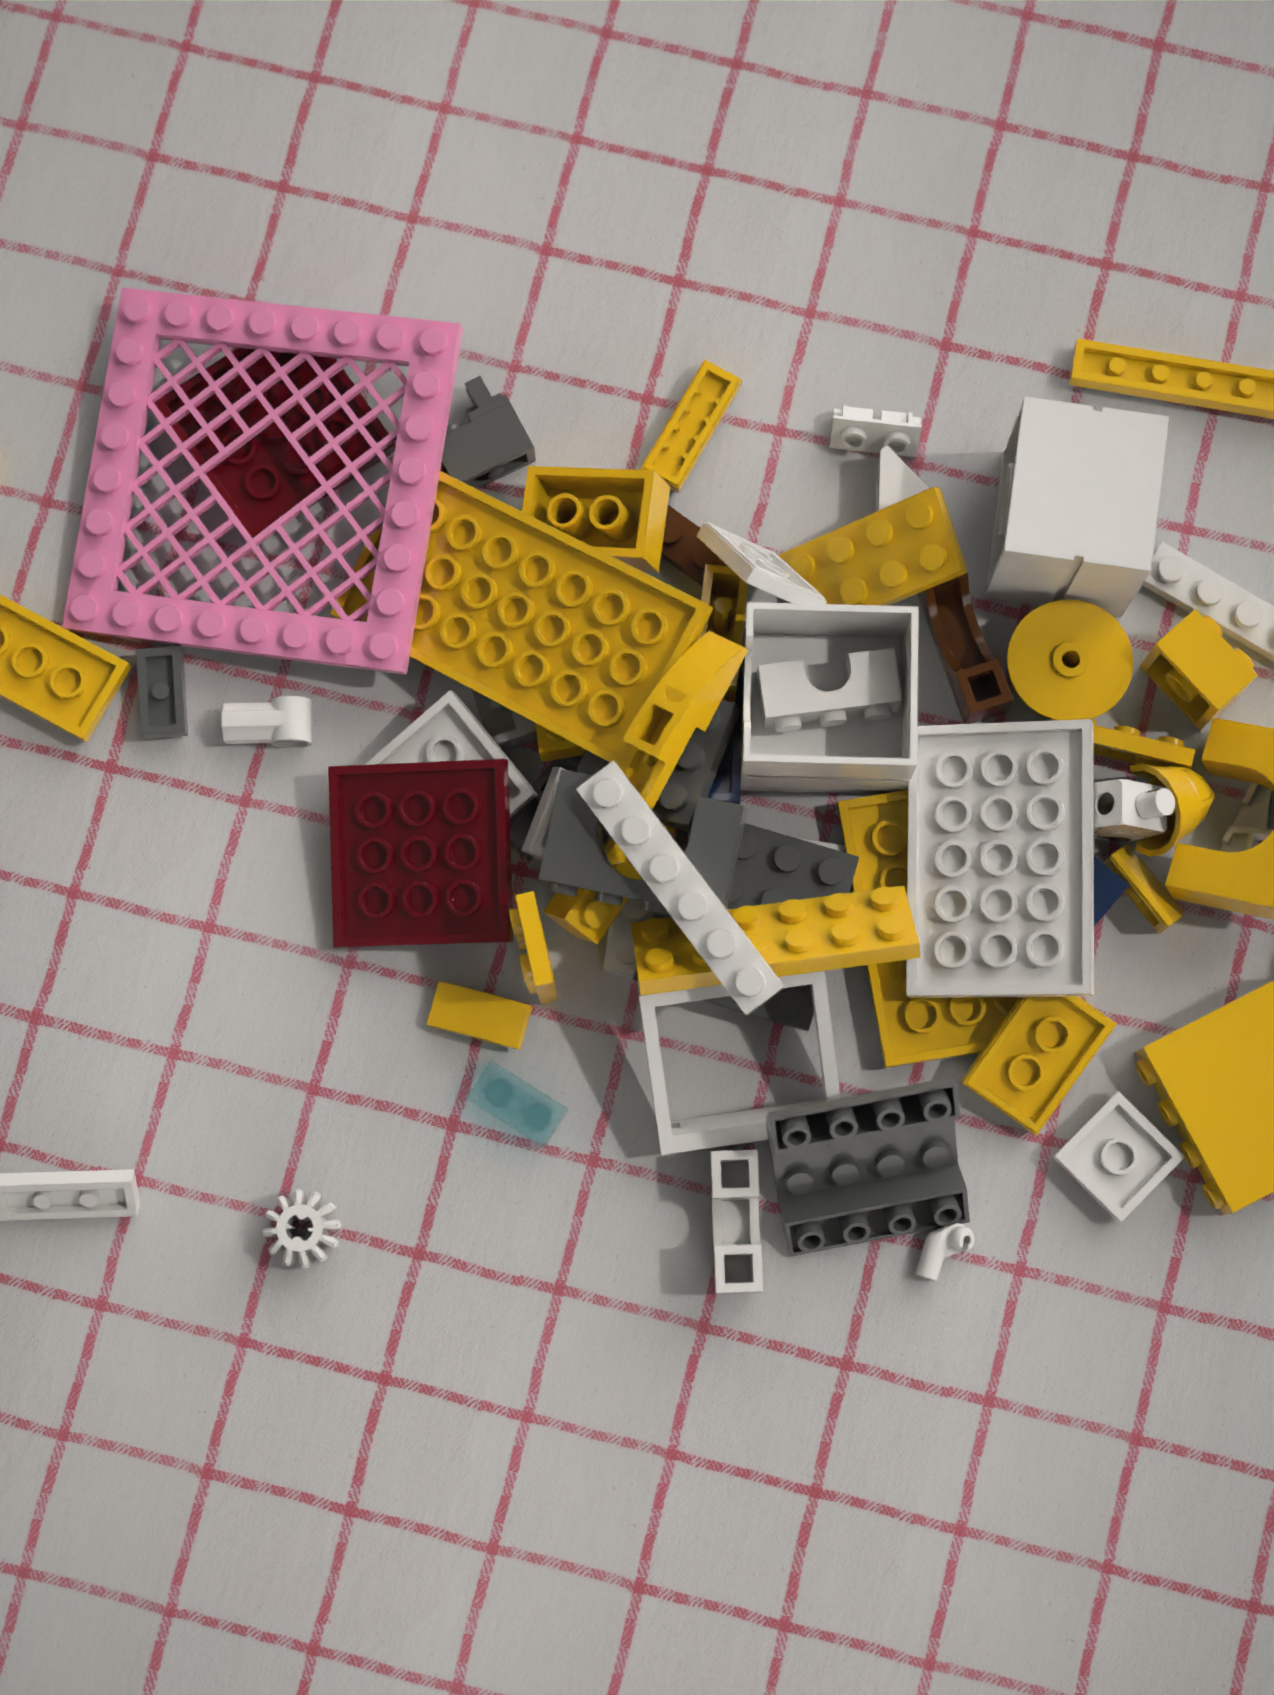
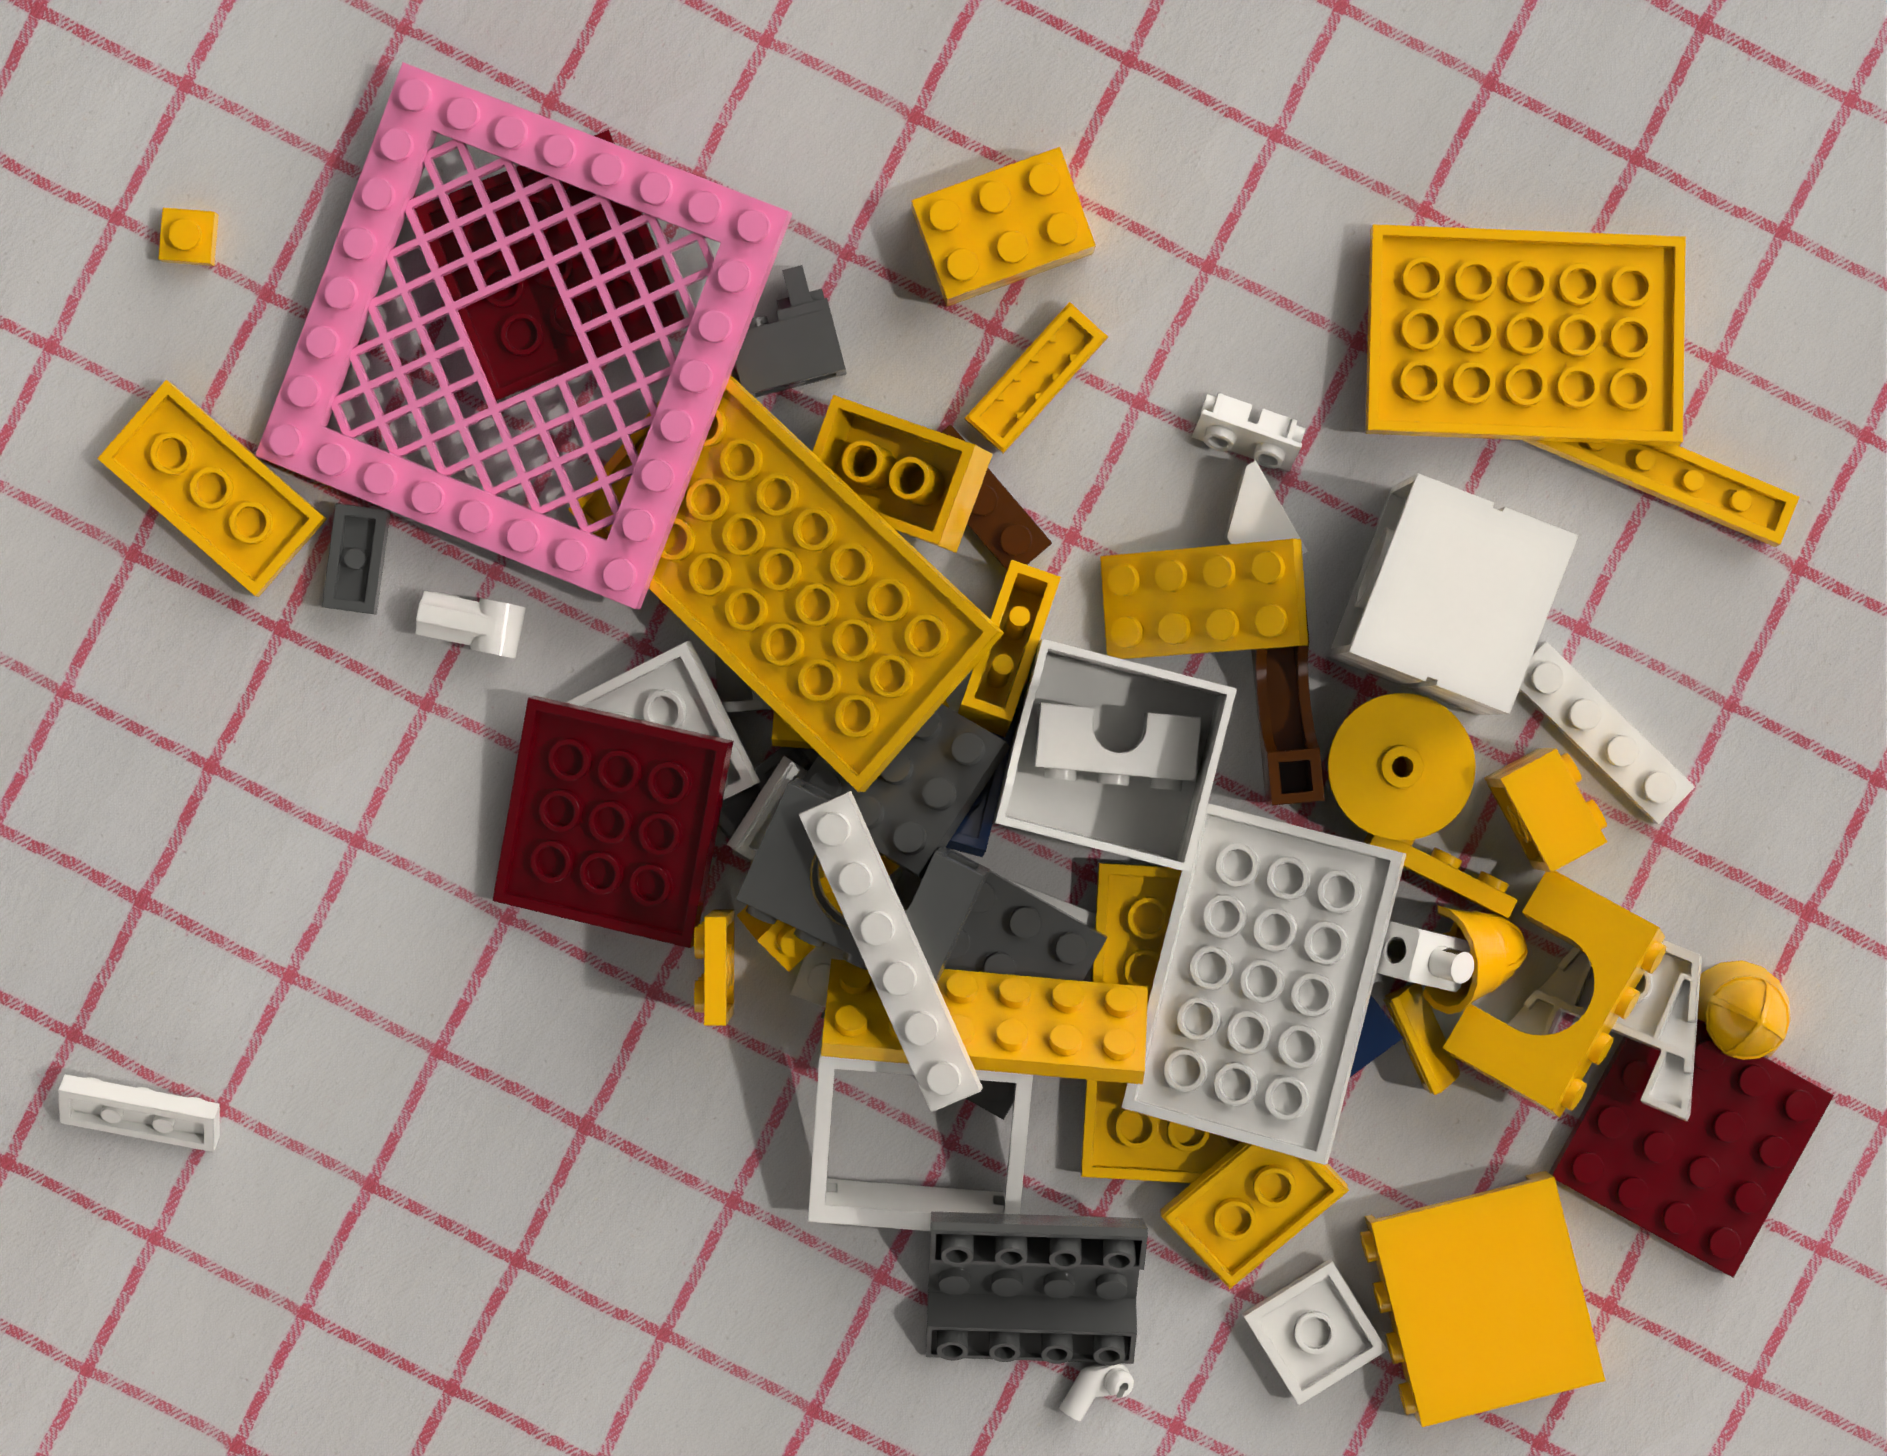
camera: 10 degrees right, 10 degrees up
(298, 1244) = (389, 1227): white gear -> none
(479, 1015) = (640, 1014): yellow slope -> none
(517, 1104) = (661, 1123): clear light blue plate -> none
(636, 312) = (1003, 226): none -> yellow brick
(678, 705) = (934, 741): yellow slope -> none
(736, 1221) = (873, 1313): white arch -> none
(759, 566) = (1072, 584): white tile -> none
(1081, 304) = (1526, 335): none -> yellow plate

